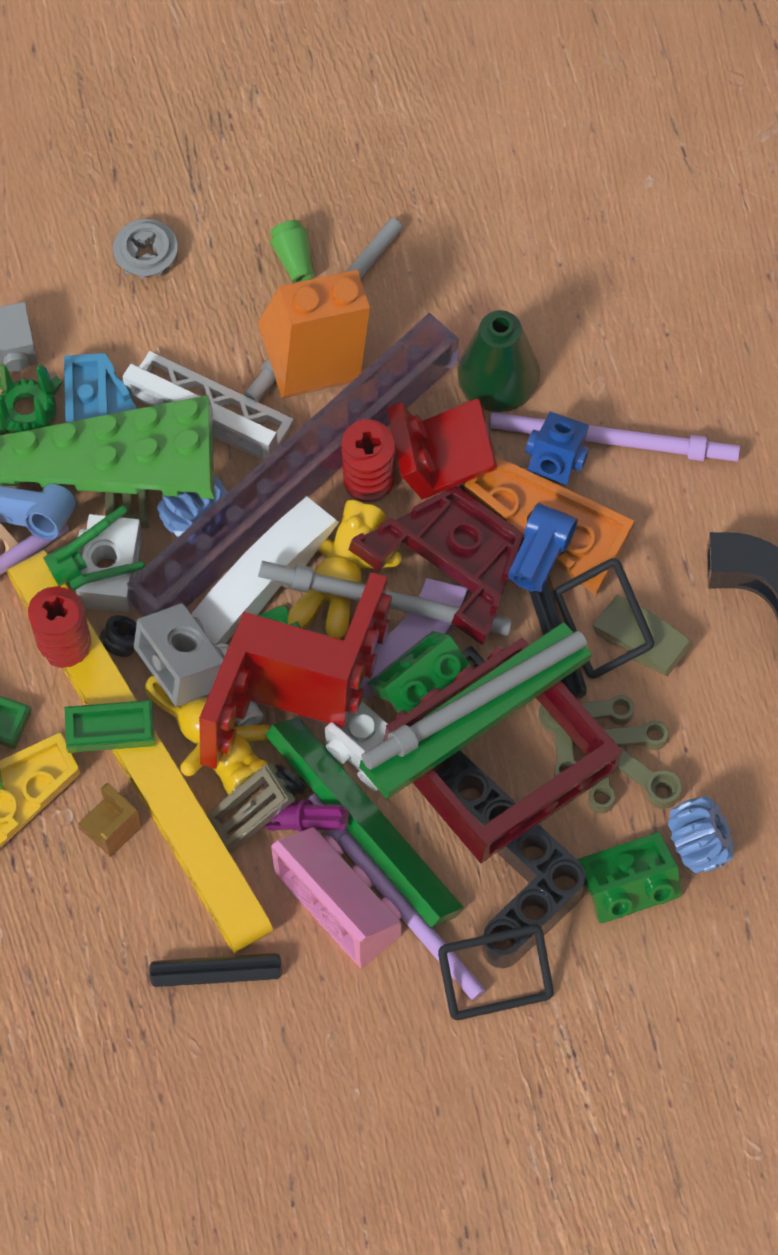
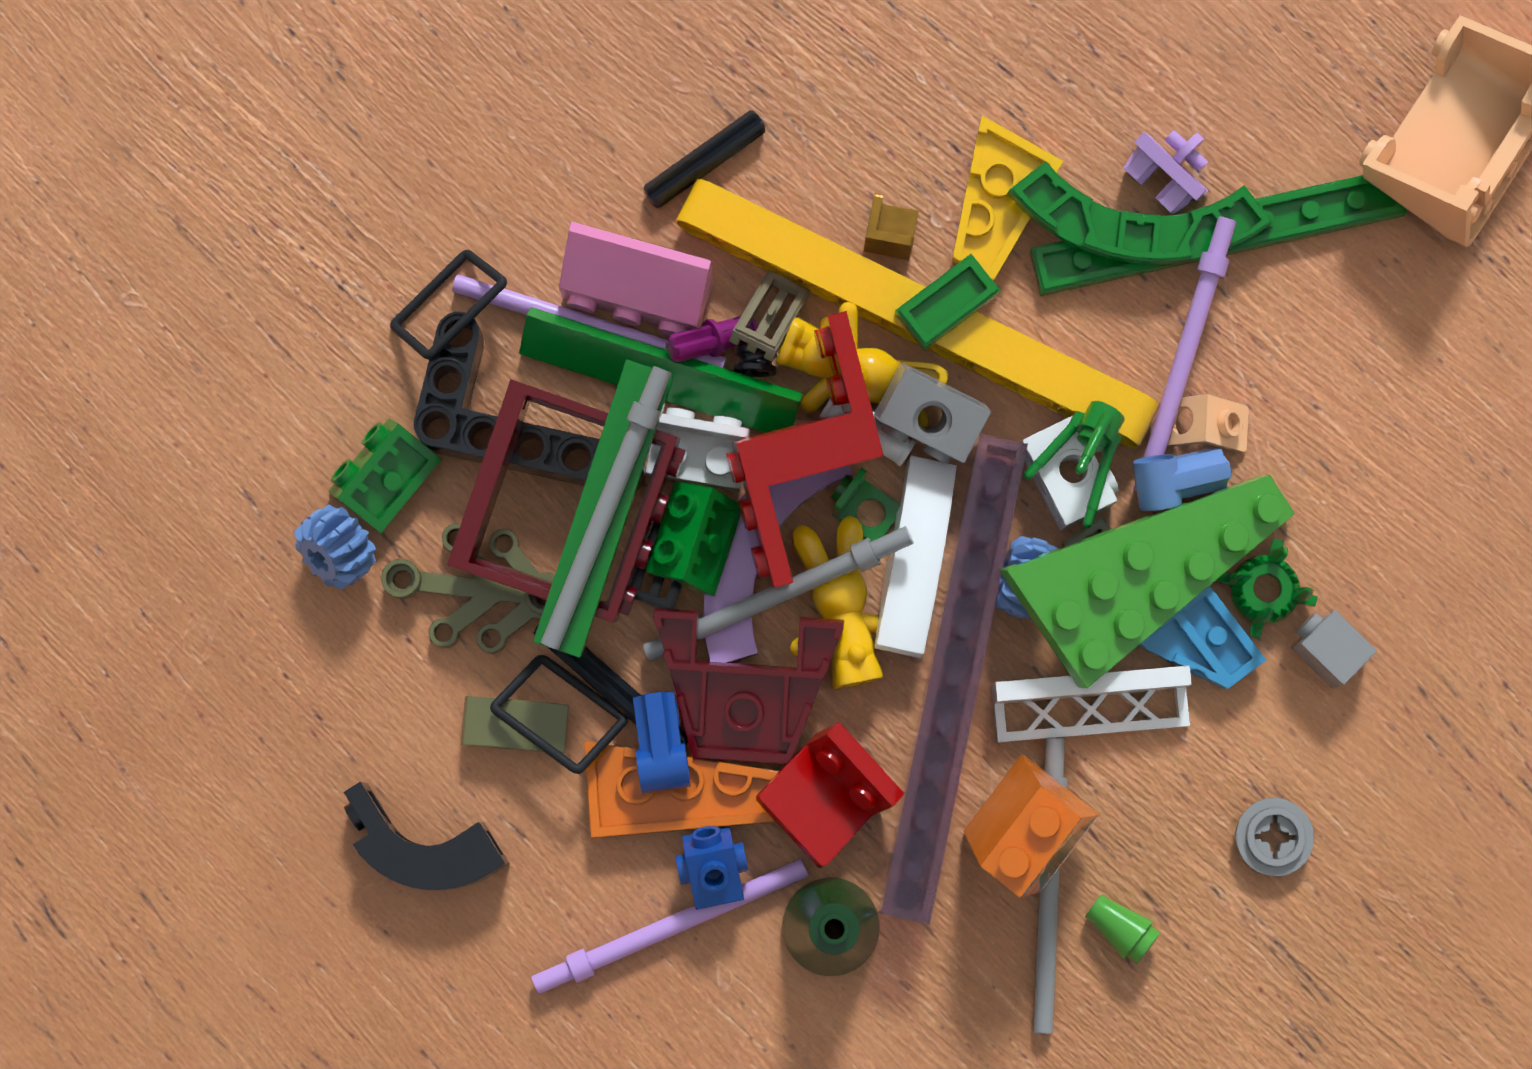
camera: 145 degrees right, 15 degrees up
(60, 626) = (1055, 349): red piece -> none
(119, 635) = (1010, 395): black bush -> none
(368, 460) = (887, 707): red piece -> none

